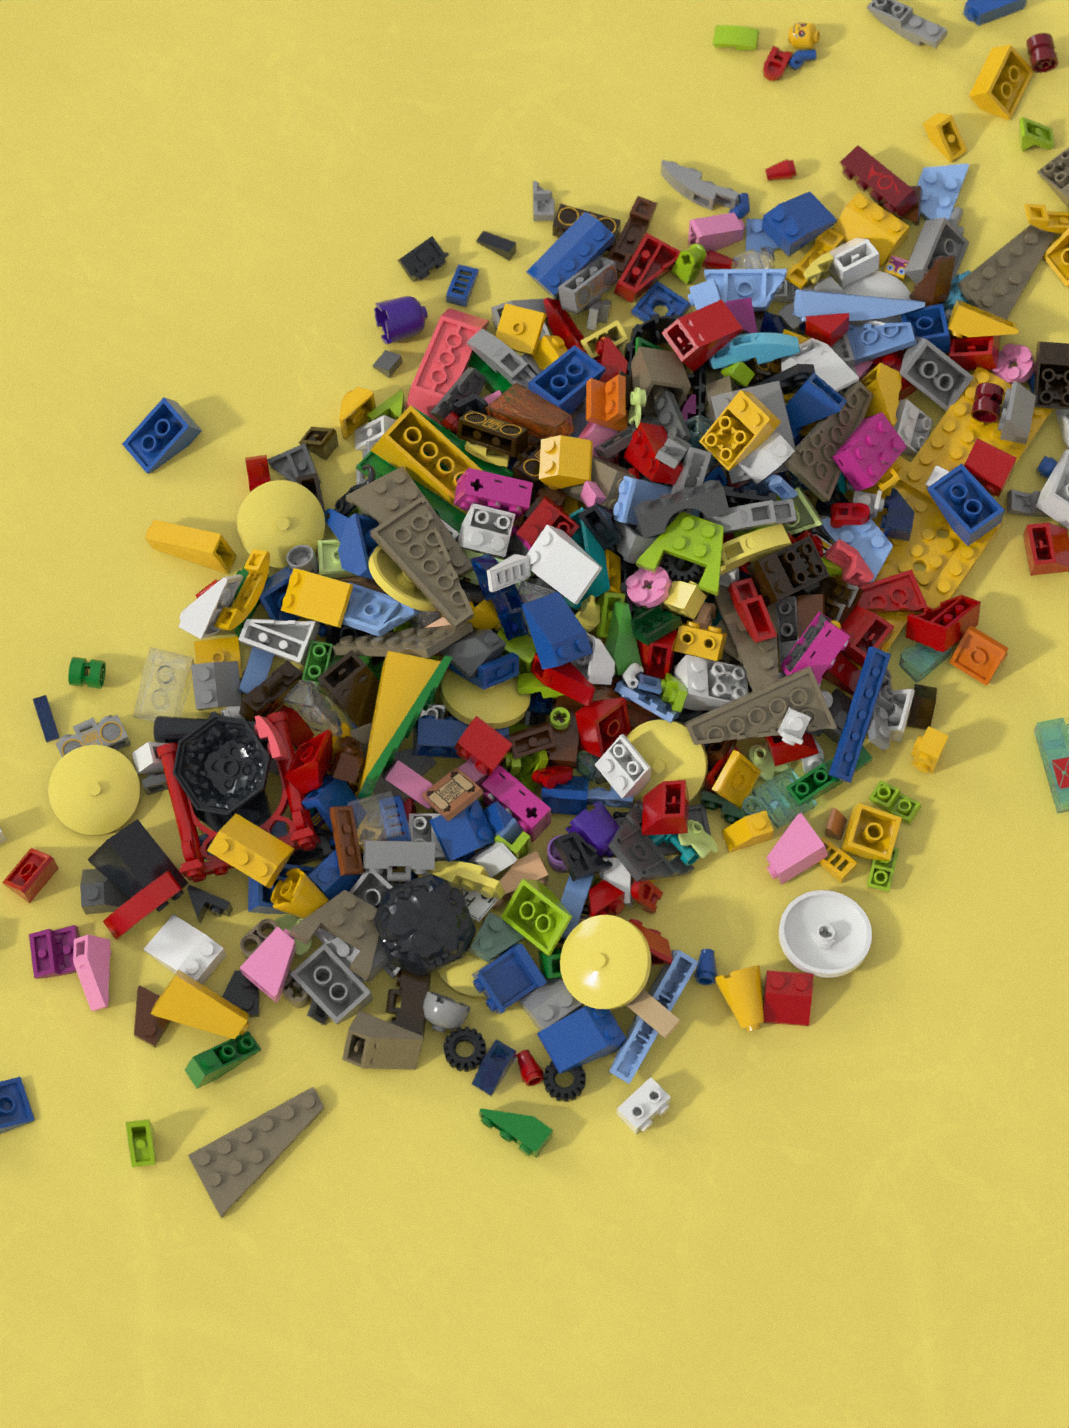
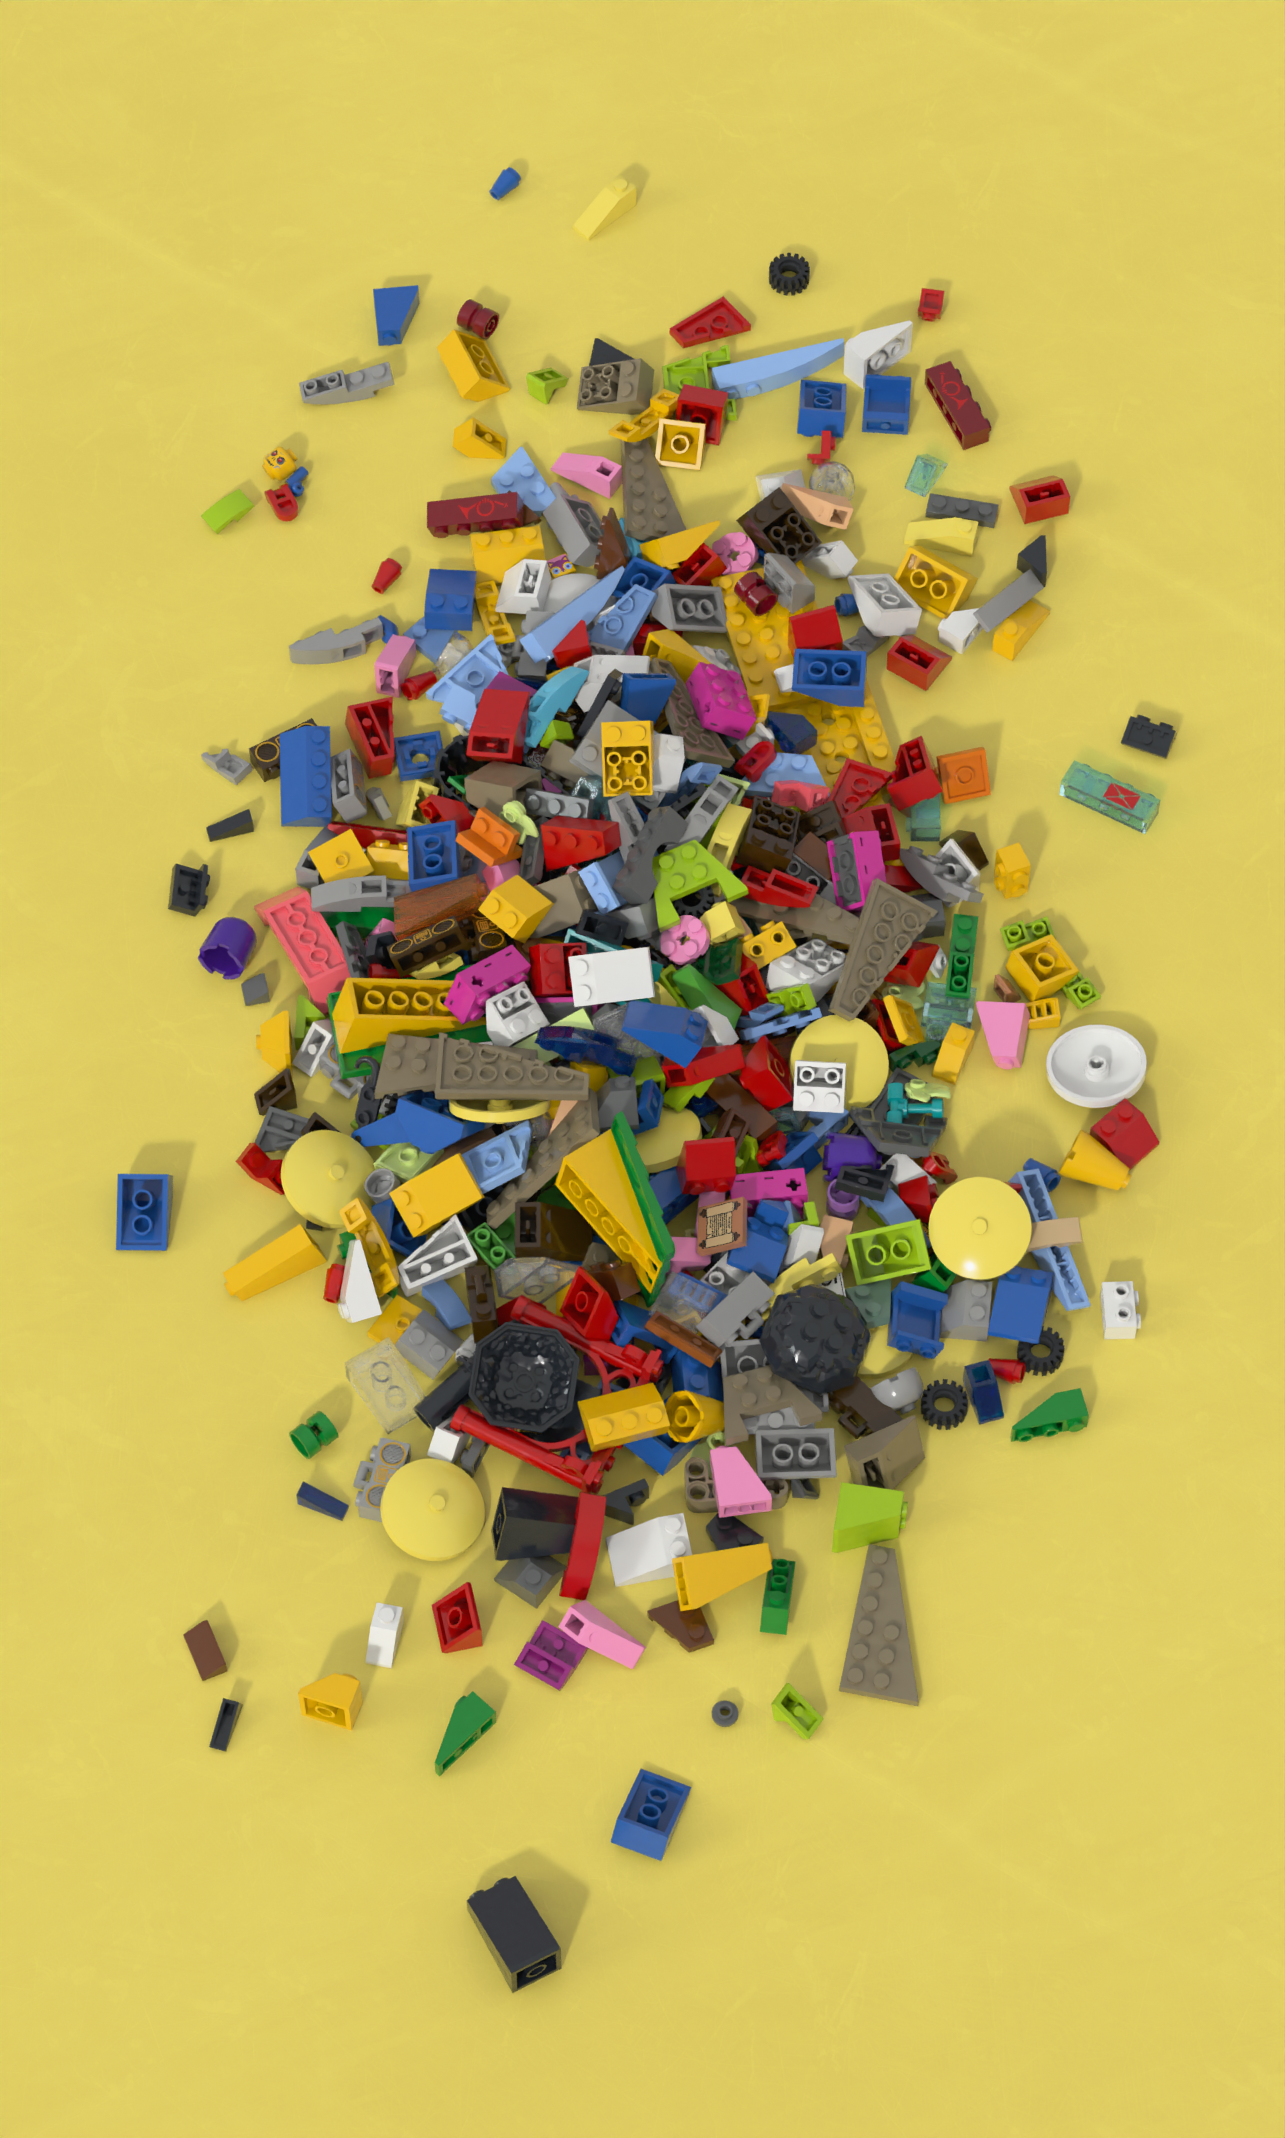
camera: 50 degrees left, 10 degrees down
(110, 1102) = (724, 1721): none -> dark grey plate
(266, 731) = (532, 1317): coral slope -> none
(324, 1067) = (867, 1516): none -> lime slope
(457, 298) = (249, 894): blue slope -> none
(510, 572) = (580, 1019): white slope -> none
(563, 712) = (725, 1095): lime bush -> none
(592, 494) = (566, 915): bright pink slope -> none
(631, 674) = (744, 1019): white arm -> none
(633, 232) = (324, 714): reddish brown slope -> none
(666, 809) = (884, 1087): red slope -> none
(673, 451) = (597, 817): light grey slope -> none
(689, 263) = (404, 703): lime piece -> none
(793, 726) = (909, 936): white bracket -> none
(818, 267) = (514, 615): light yellow slope -> none
(859, 714) = (939, 889): blue tile -> none
(989, 222) = (591, 472): none -> bright pink slope

